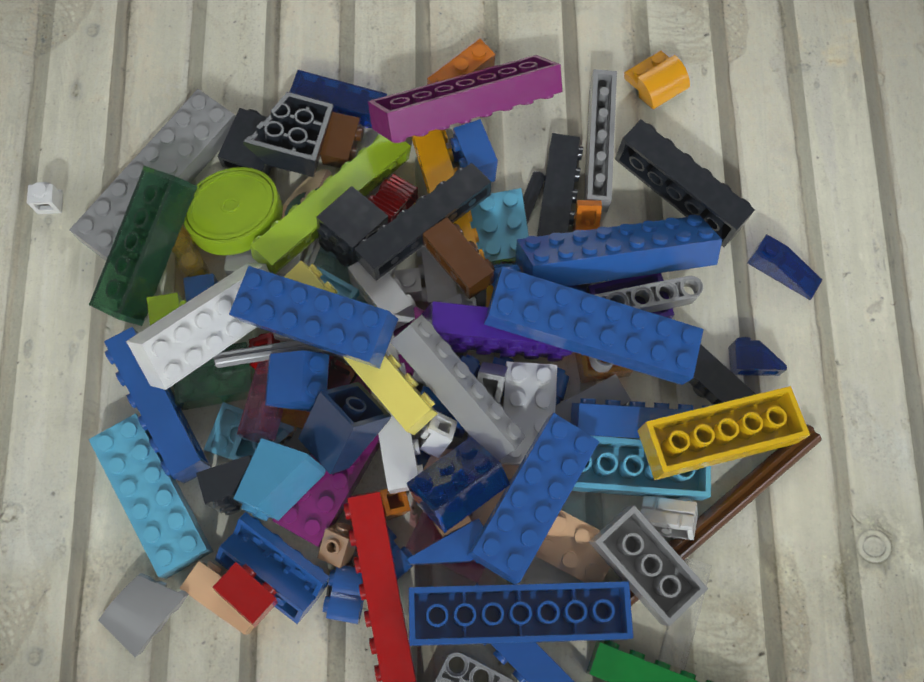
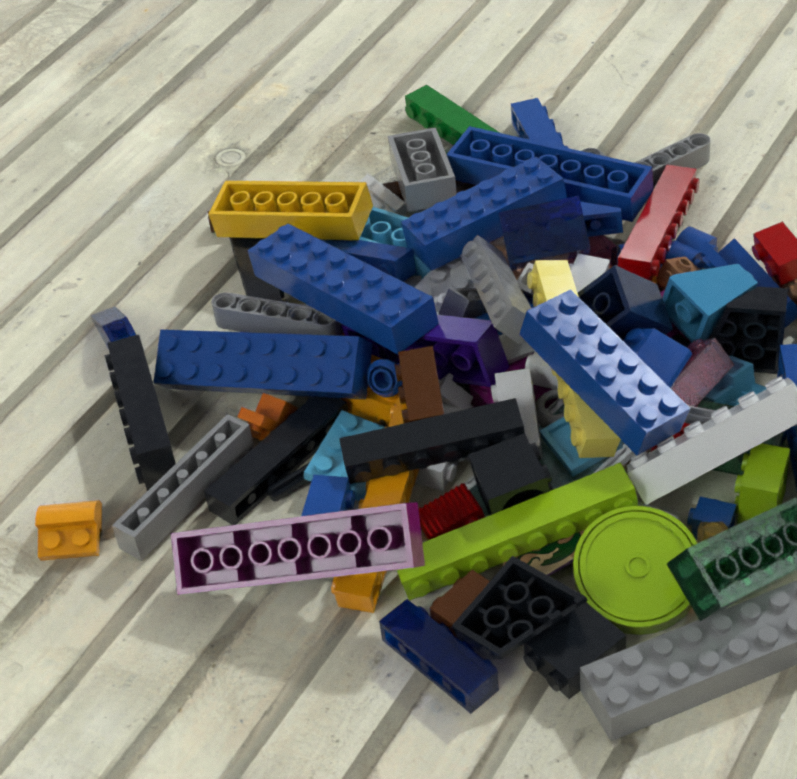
camera: 140 degrees left, 30 degrees down
(472, 59) = (274, 619): orange brick -> none
(754, 359) = (211, 277): clear blue slope -> none

